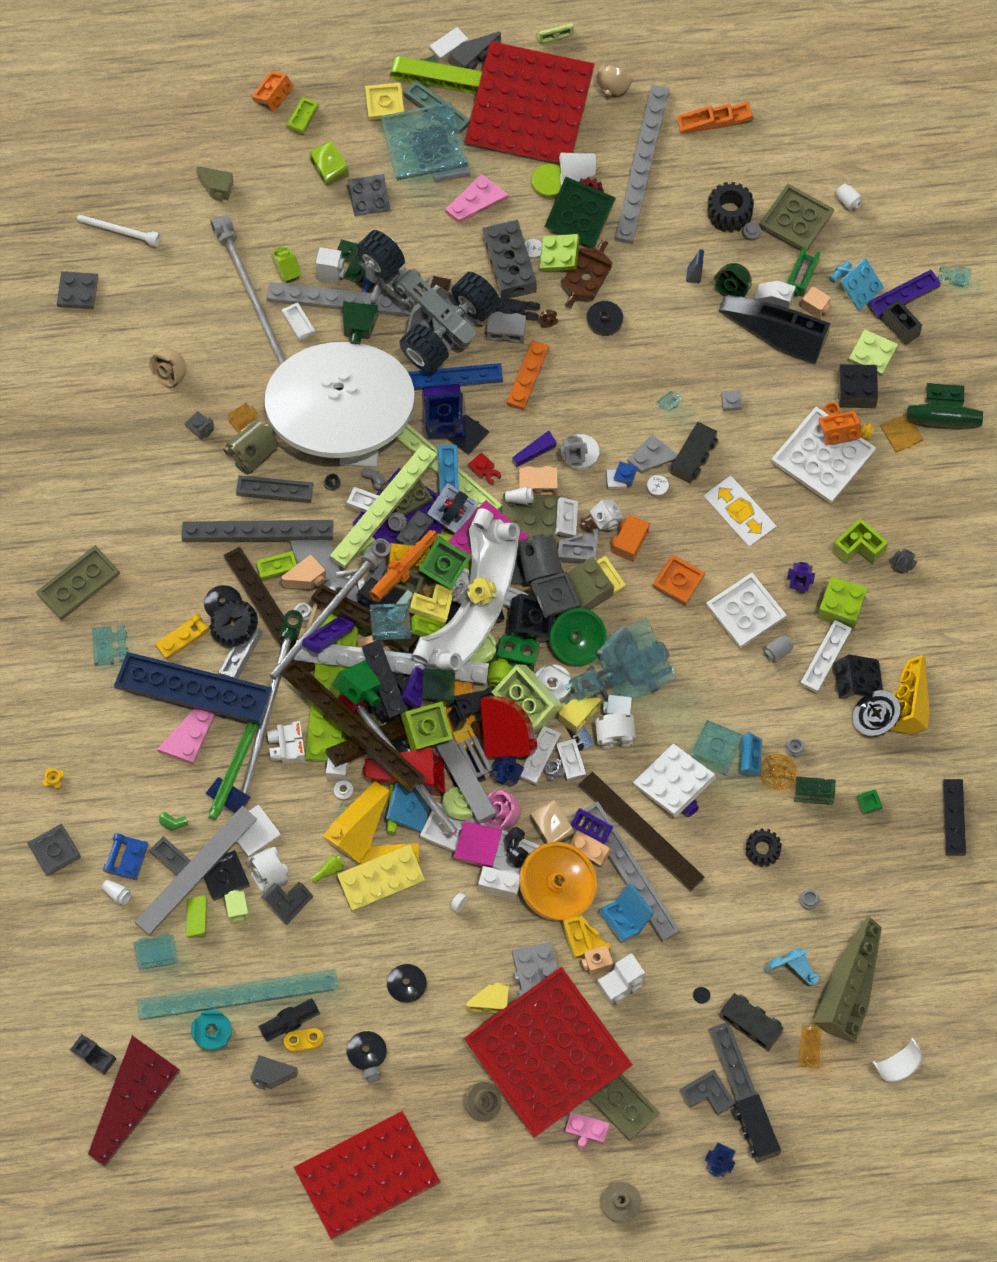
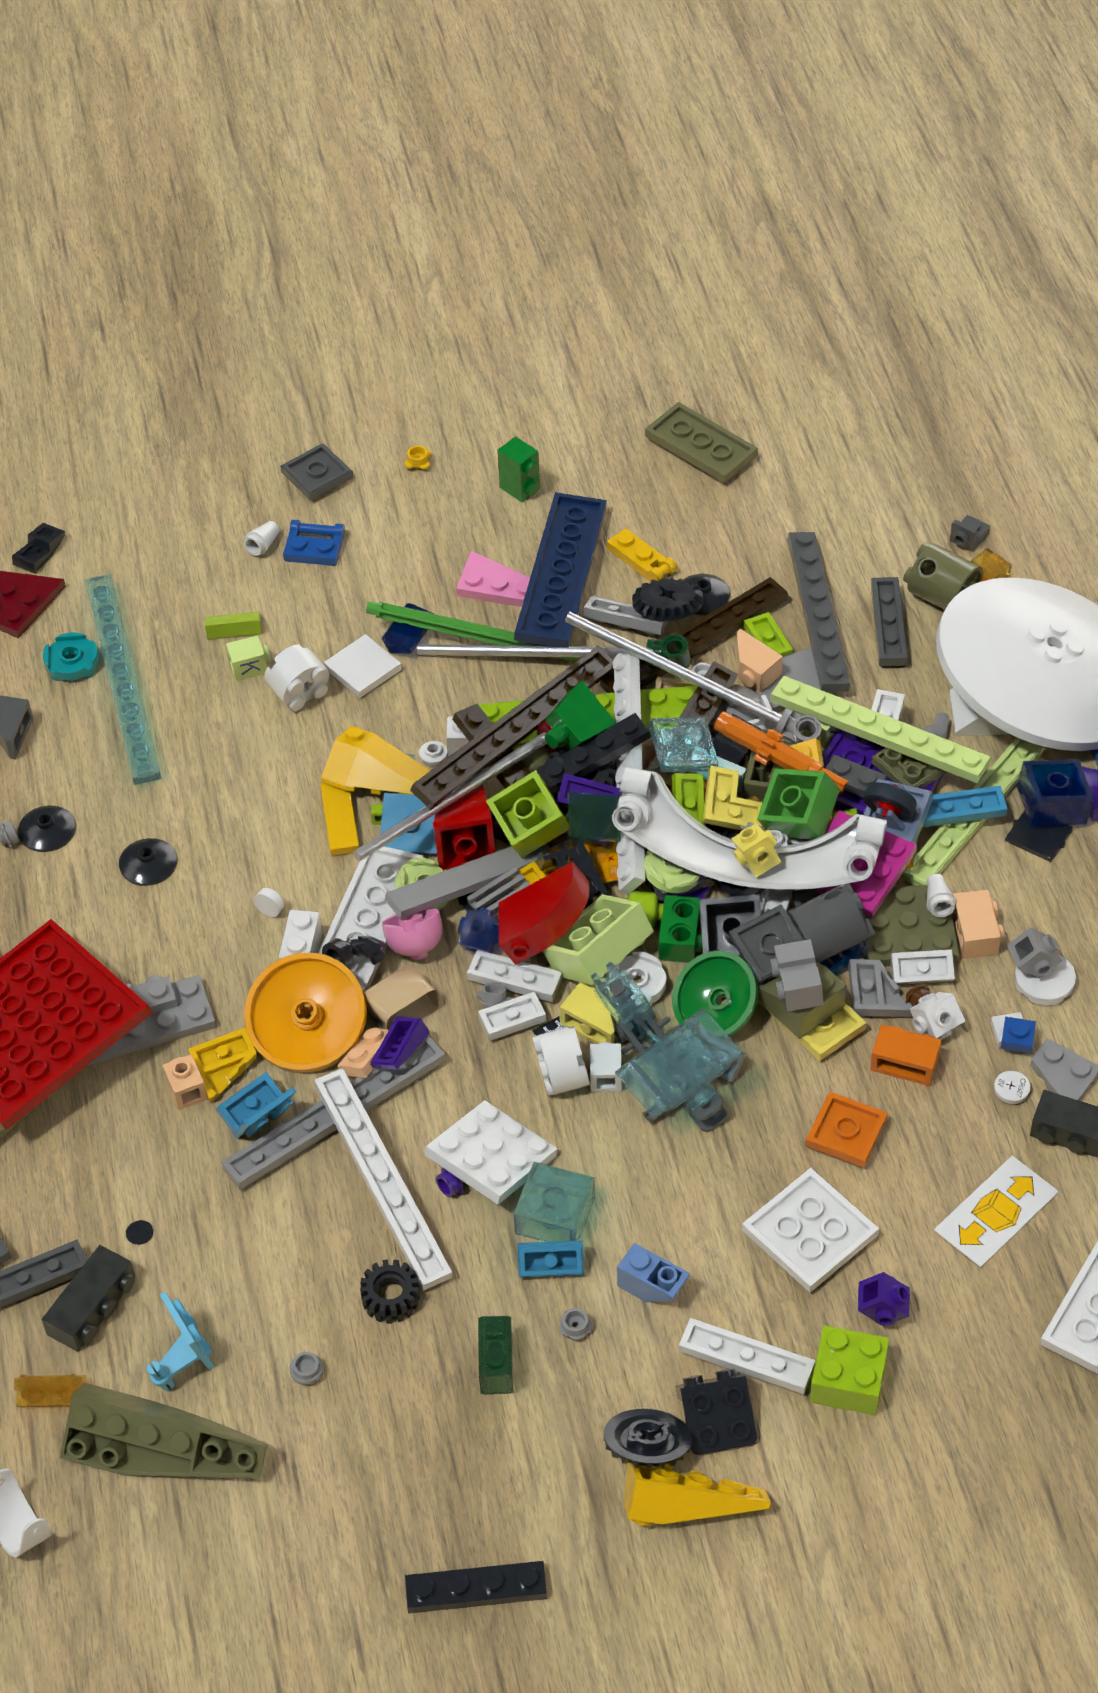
camera: 85 degrees right, 15 degrees down
(92, 704) = (518, 469): none -> green brick
(103, 645) = (617, 485): clear light blue plate -> none
(155, 952) = (178, 585): clear light blue brick -> none
(168, 366) = (1049, 483): tan cylinder -> none
(169, 855) = (316, 584): dark grey plate -> none
(172, 823) = (365, 579): bright green arm -> none
(195, 870) = (298, 609): light grey tile -> none
(226, 876) = (296, 632): black tile -> none
(287, 905) = (249, 706): dark grey plate -> none
(289, 1020) = (86, 733): black piece -> none
(290, 741) = (496, 680): white hips -> none
(303, 1040) = (59, 756): yellow plate -> none
(328, 634) = (651, 679): dark purple plate -> none
(329, 483) = (915, 682): black hinge -> none
(331, 866) = (314, 752): lime cone -> none
(381, 877) = (301, 808): light yellow plate -> none
(397, 521) = (861, 751): light grey plate -> none
(478, 844) = (354, 905): dark pink tile -> none
(484, 467) = (985, 856): red plate -> none
(490, 999) = (120, 954): light yellow slope -> none
(538, 447) = (1031, 914): dark purple piece -> none
(591, 579) = (798, 975): none -> light grey brick
(624, 979) = (152, 1113): white brick -> none
(641, 831) = (409, 1118): dark brown tile -> none
(686, 844) = (383, 1179): none -> white plate
(772, 699) = (650, 1275): none -> medium blue slope
(777, 771) = (530, 1303): clear yellow wheel -> none
(778, 649) = (747, 1281): light grey brick -> none
(861, 539) = (974, 1384): lime brick -> none
(869, 801) = (487, 1444): green plate -> none
(904, 560) = (951, 1463): dark grey gear -> none

